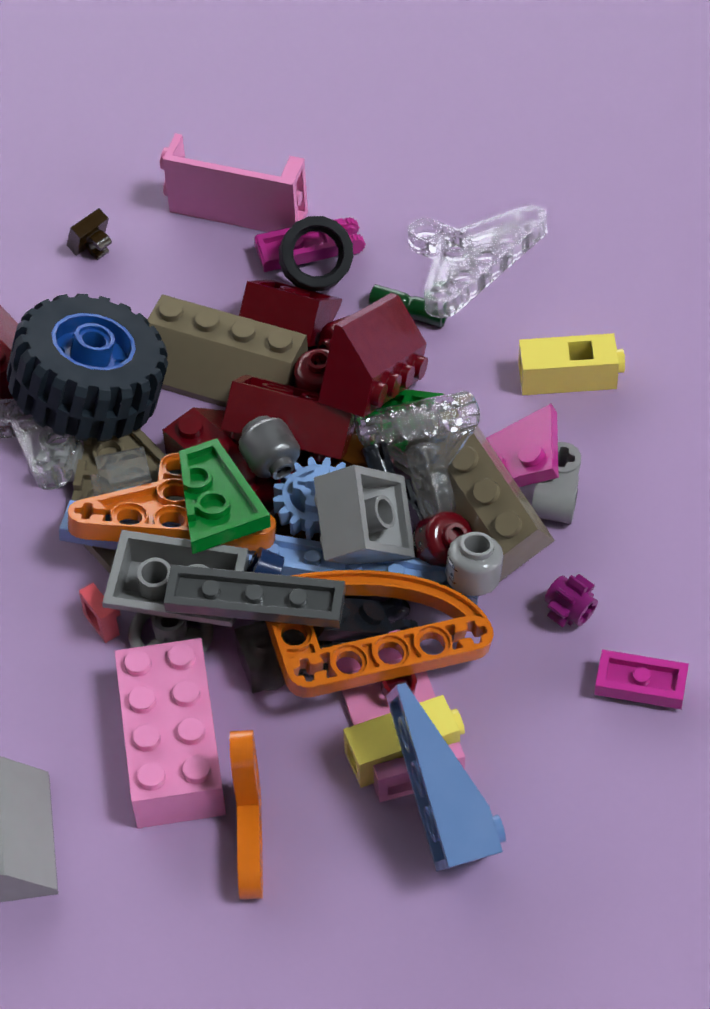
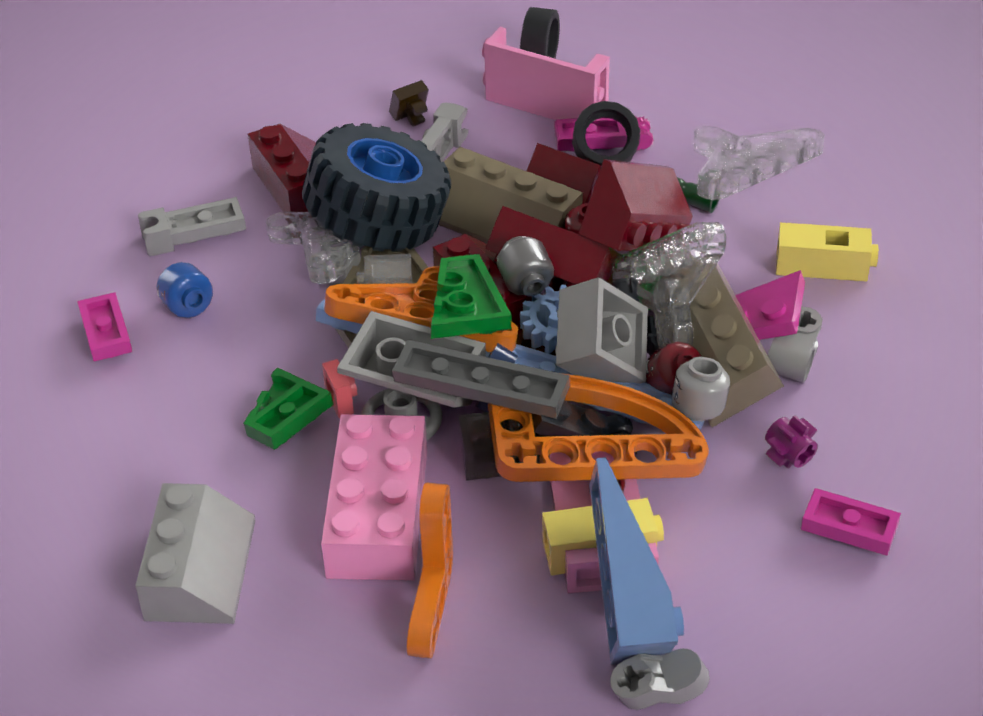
camera: 10 degrees right, 10 degrees down
(49, 644) = (285, 409): none -> green wing
(139, 267) = (446, 129): none -> light grey plate
(217, 129) = (541, 31): none -> black tyre
(487, 882) = (659, 679): none -> light grey piece

